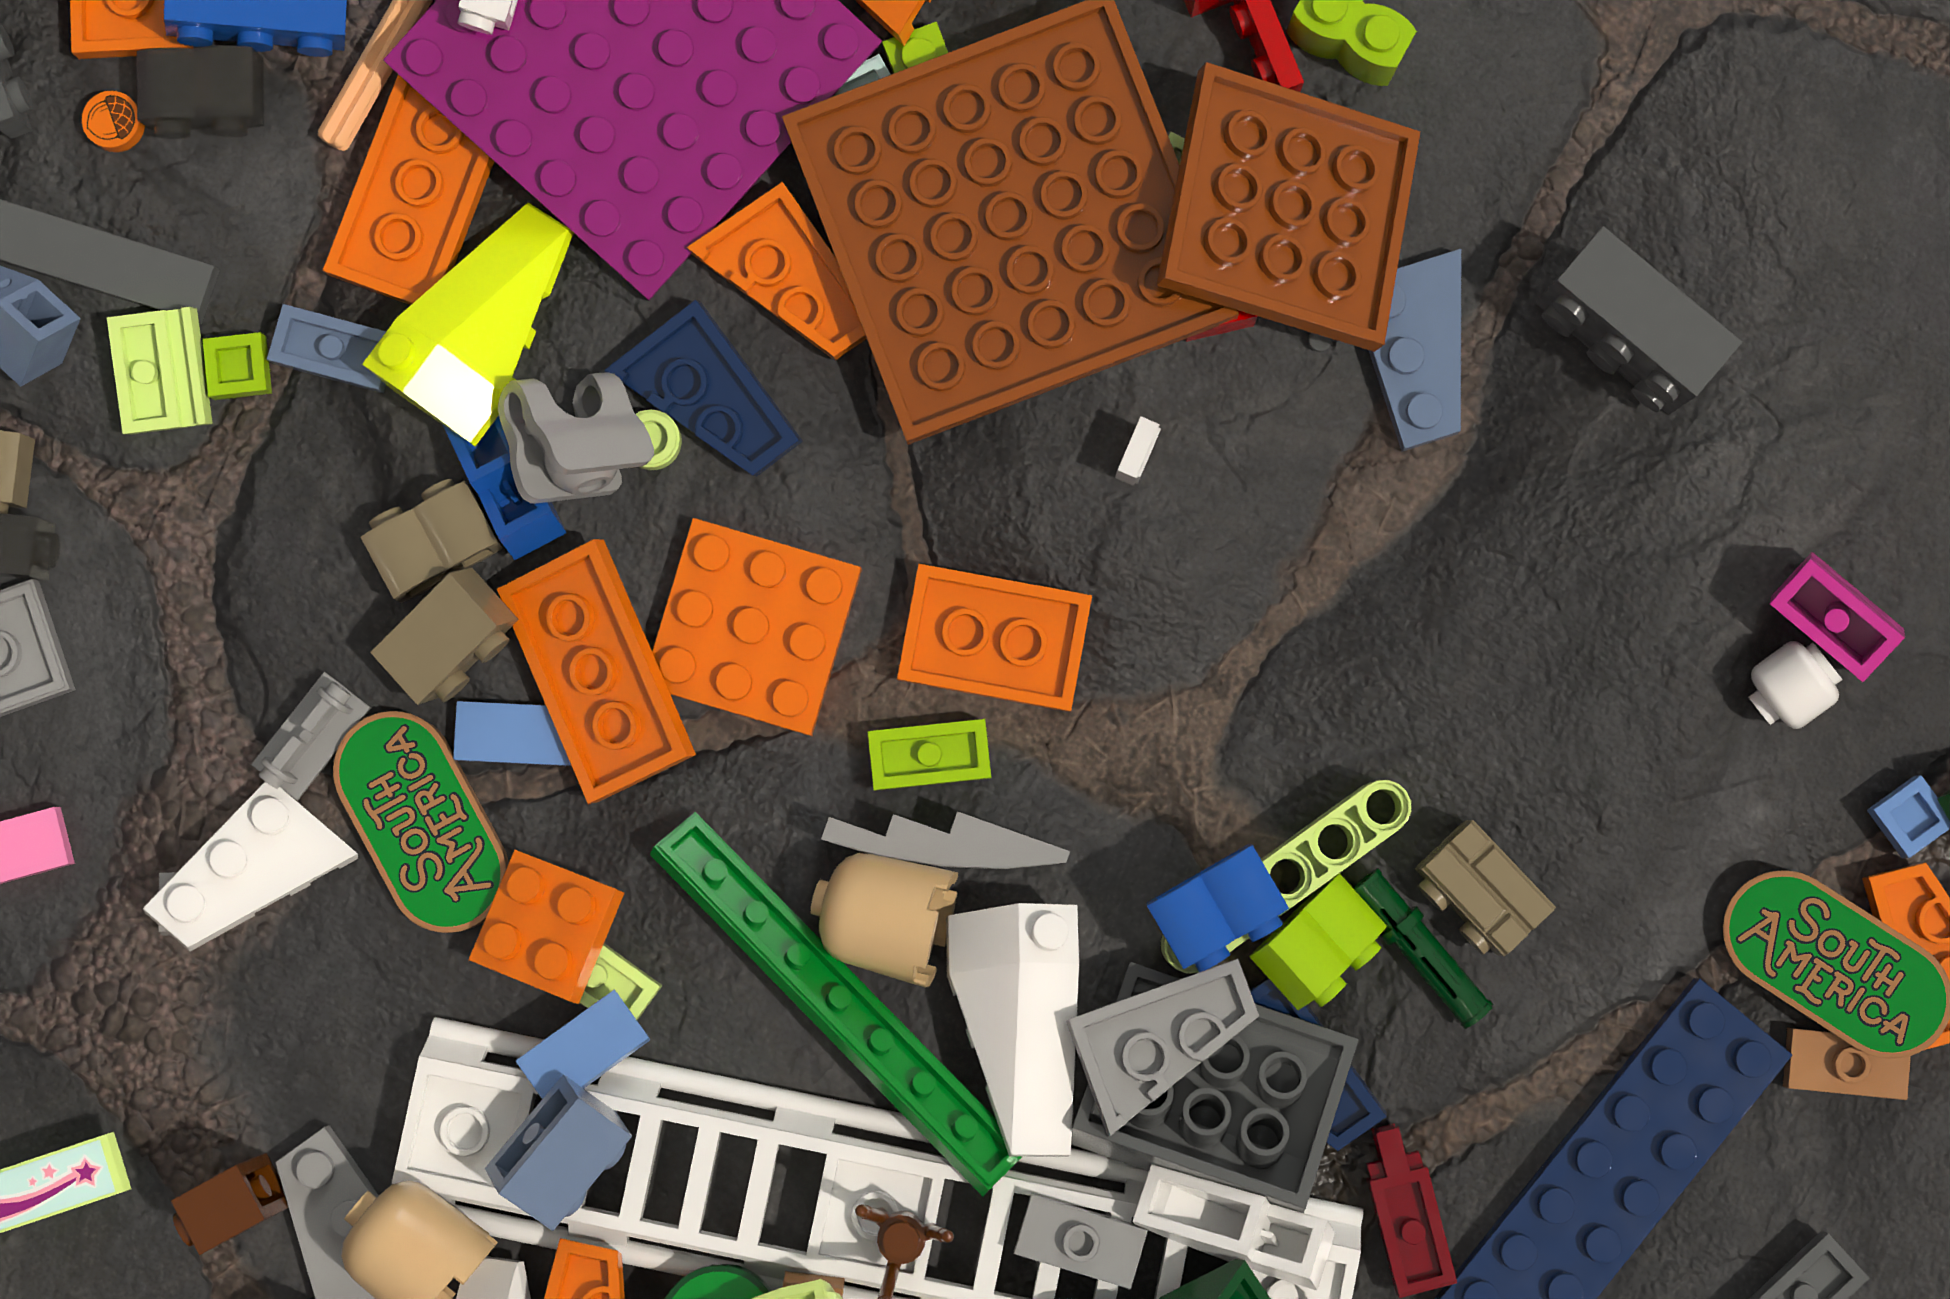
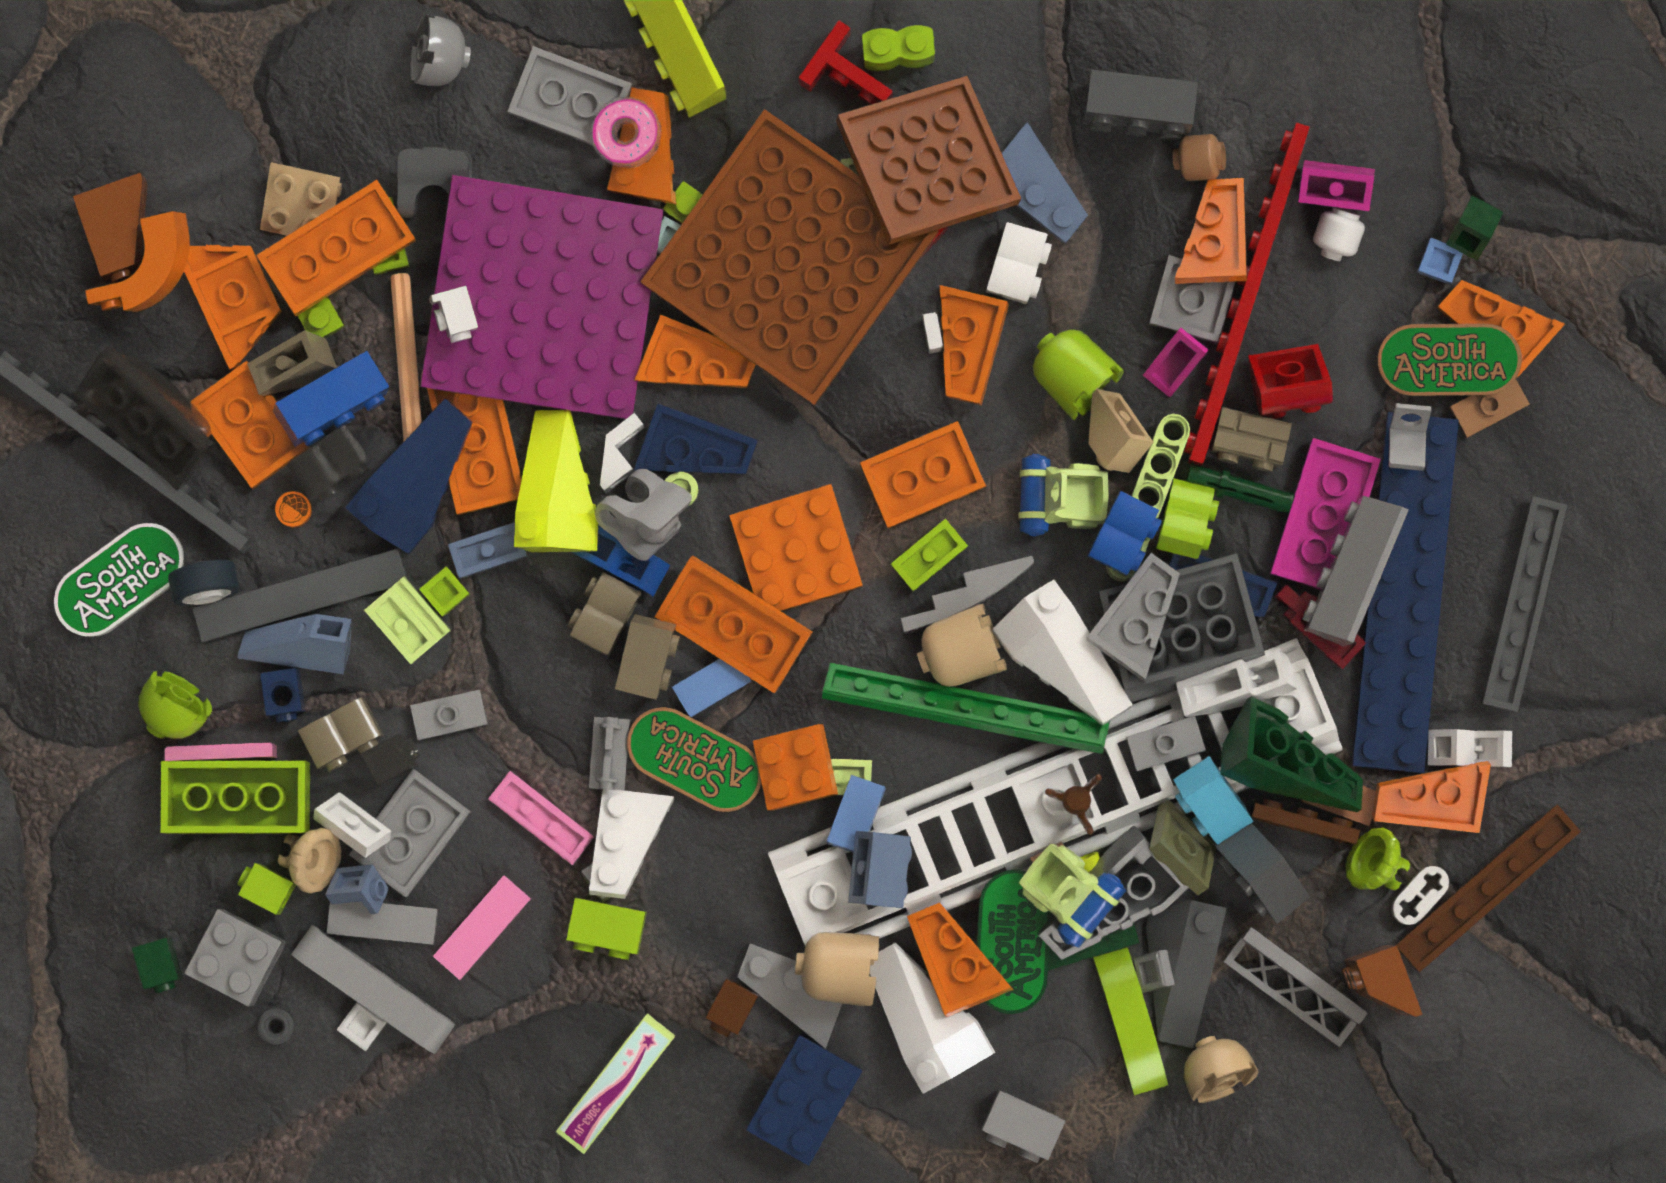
camera: 35 degrees left, 0 degrees up
(131, 538) = (449, 715): none -> light grey plate
(141, 973) = (606, 927): none -> lime brick
(161, 762) = (541, 818): none -> bright pink tile
(279, 187) = (409, 485): none -> dark blue wedge
(581, 344) = (614, 465): none -> white slope
(1167, 793) = (1061, 495): none -> yellowish green piece
(1186, 494) = (971, 339): none -> orange wing
(1299, 633) = (1073, 369): none -> lime cylinder
(1300, 757) = (1116, 432): none -> tan slope
(1318, 433) = (1017, 263): none -> white brick
(1448, 713) = (1175, 362): none -> dark pink slope
(1512, 1177) = (1354, 570): none -> light grey slope
(1516, 1066) = (1325, 489): none -> dark pink plate
(1530, 642) = (1191, 306): none -> light grey plate
(1592, 846) = (1290, 381): none -> red brick
(1622, 579) = (1218, 236): none -> orange wing
(1628, 668) = (1241, 308): none -> red plate
(1669, 452) = (1200, 157): none -> medium nougat head
(1706, 1037) = (1408, 439): none -> light grey bracket

